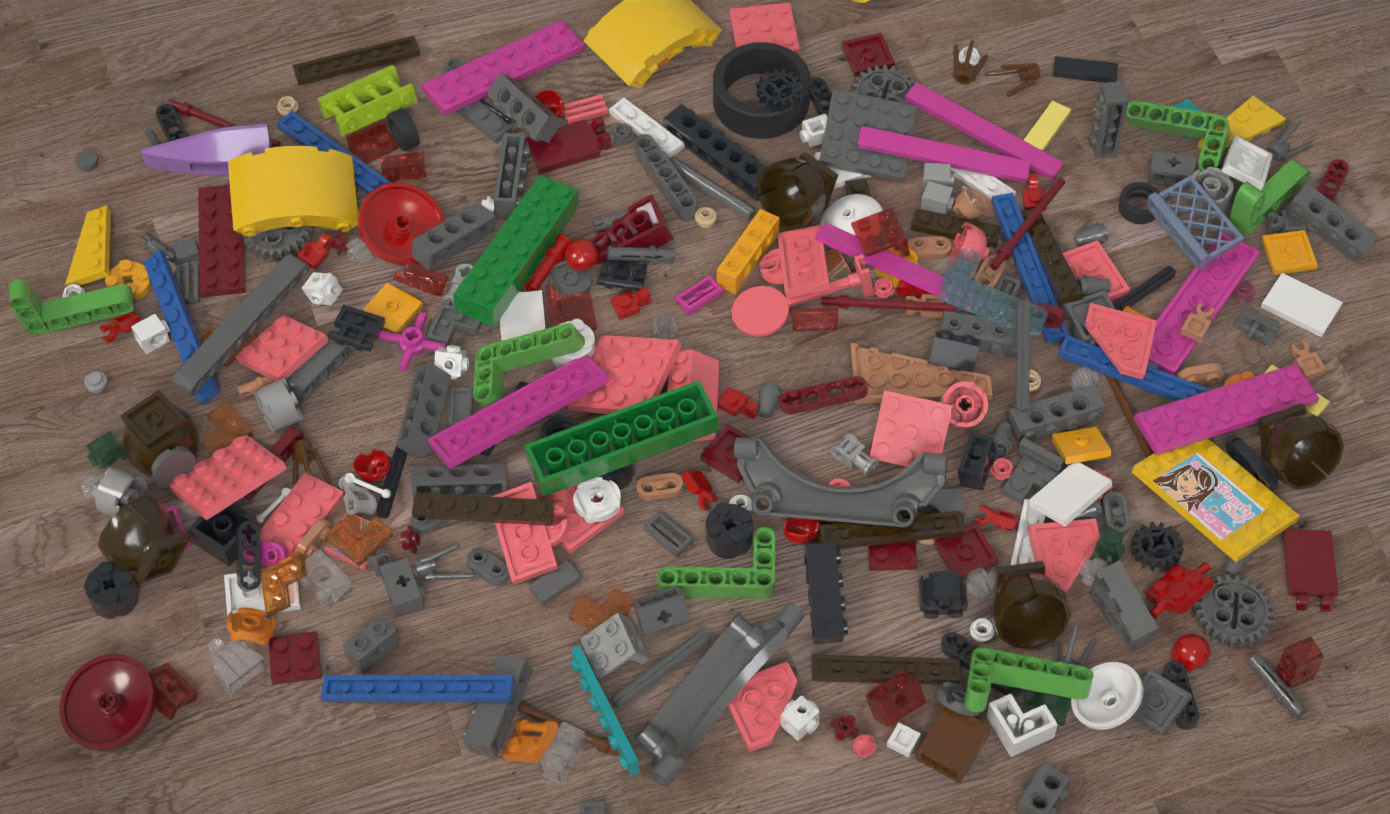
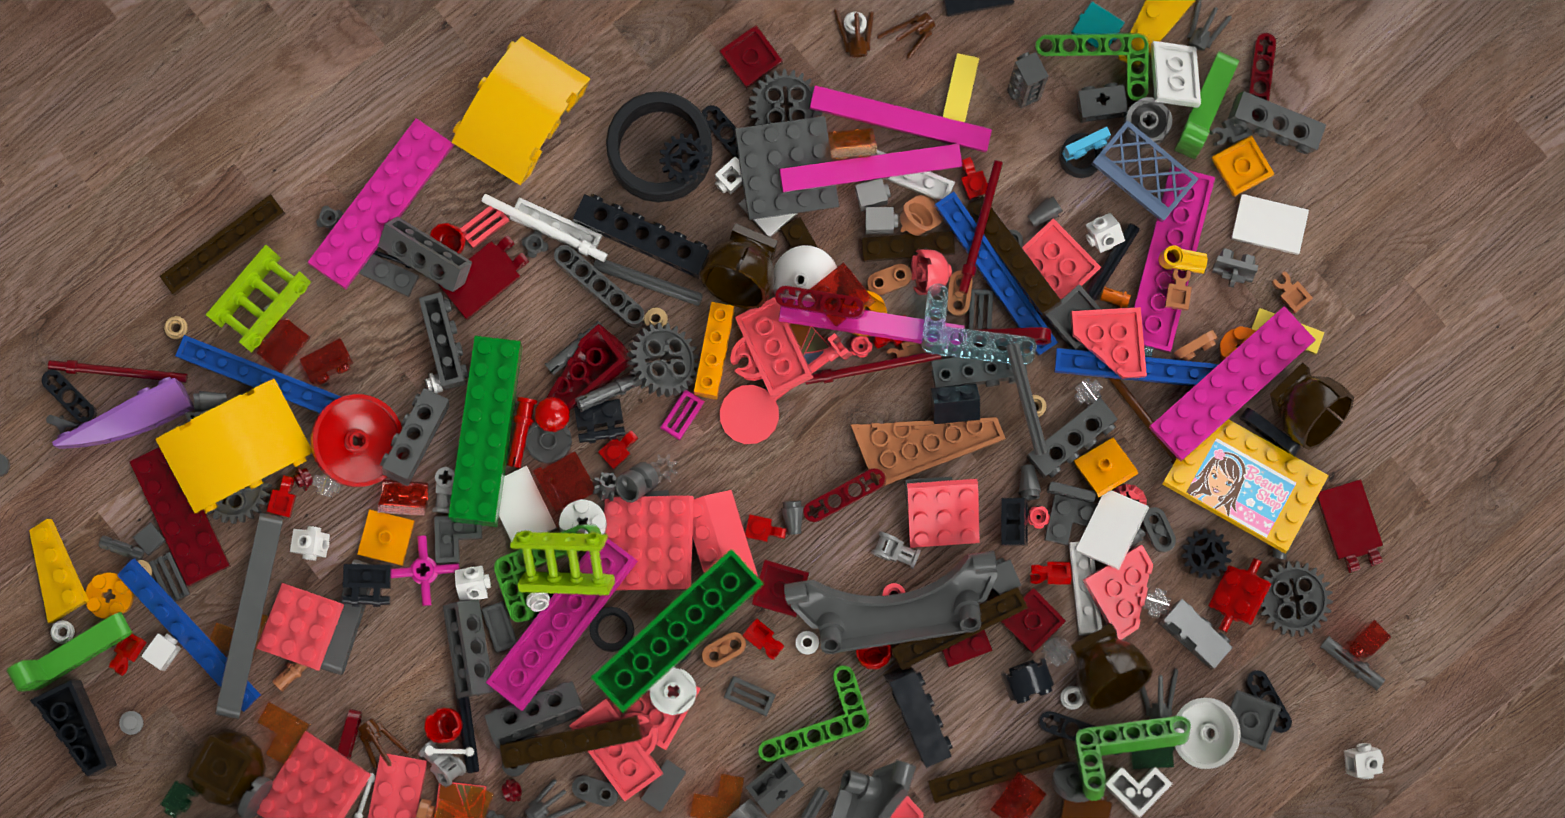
camera: 20 degrees left, 25 degrees up
(47, 364) = (76, 725): none -> black wedge
(278, 405) = (326, 694): light grey brick -> none
(403, 129) = (311, 323): black tyre -> none
(504, 391) = (537, 601): none -> white plate
(526, 369) = (557, 582): none -> lime fence
(606, 324) = (605, 486): none -> dark grey gear
(634, 323) = (636, 482): none -> dark grey wheel
(663, 142) = (583, 247): none -> white bar
(698, 241) = (666, 381): none -> dark grey gear
(729, 530) = (817, 668): black brick -> none
(764, 24) = (632, 59): coral plate -> none
(814, 319) = (806, 407): clear red bracket -> none
(860, 225) = (820, 300): none -> dark red beam
(926, 132) = (852, 143): none -> clear orange plate
(973, 397) = (980, 454): coral brick -> none
(1092, 285) = (1065, 281): dark grey cone -> none
(1109, 546) = (1164, 570): clear green brick -> none
(1141, 263) = (1104, 233): none -> white brick
(1146, 183) = (1081, 147): none -> medium azure plate
(1191, 651) = (1266, 654): red hair -> none
(1202, 293) = (1185, 260): none -> yellow piece
(1244, 287) = (1217, 227): clear pink plate -> none
(1263, 773) = (1363, 761): none -> white brick

